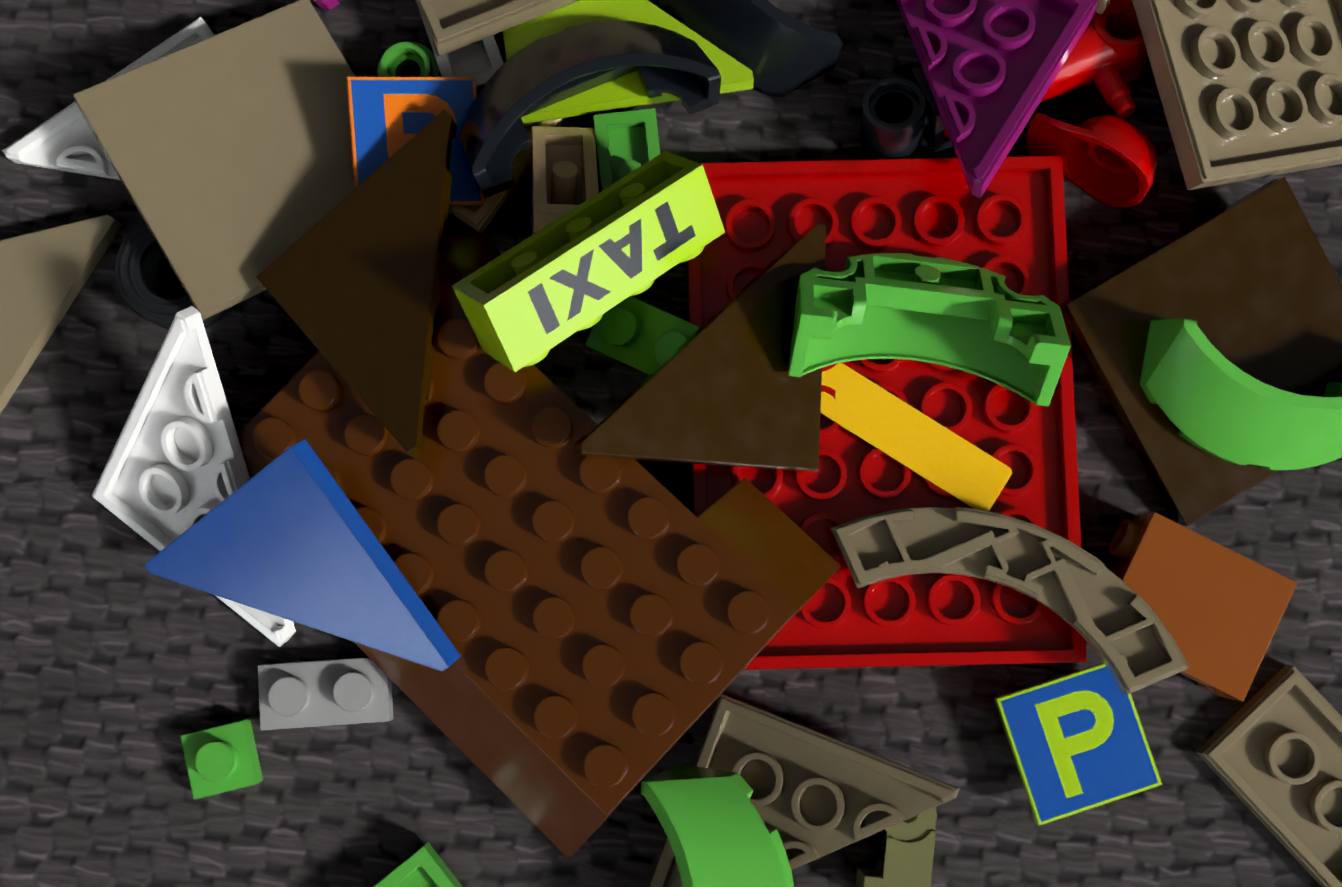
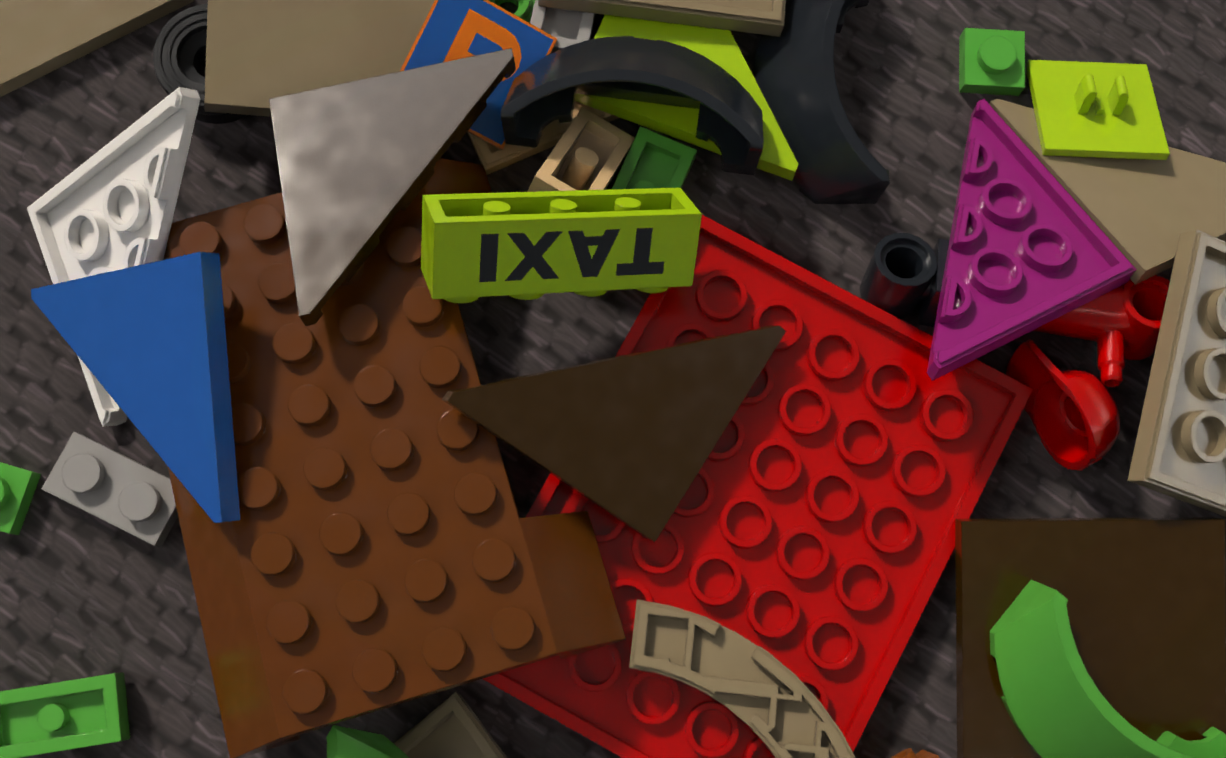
camera: 25 degrees right, 5 degrees down
(639, 335) = (568, 331): bright green plate -> none
(913, 438) = (757, 562): yellow sticker -> none
(929, 314) = (831, 459): bright green windscreen -> none

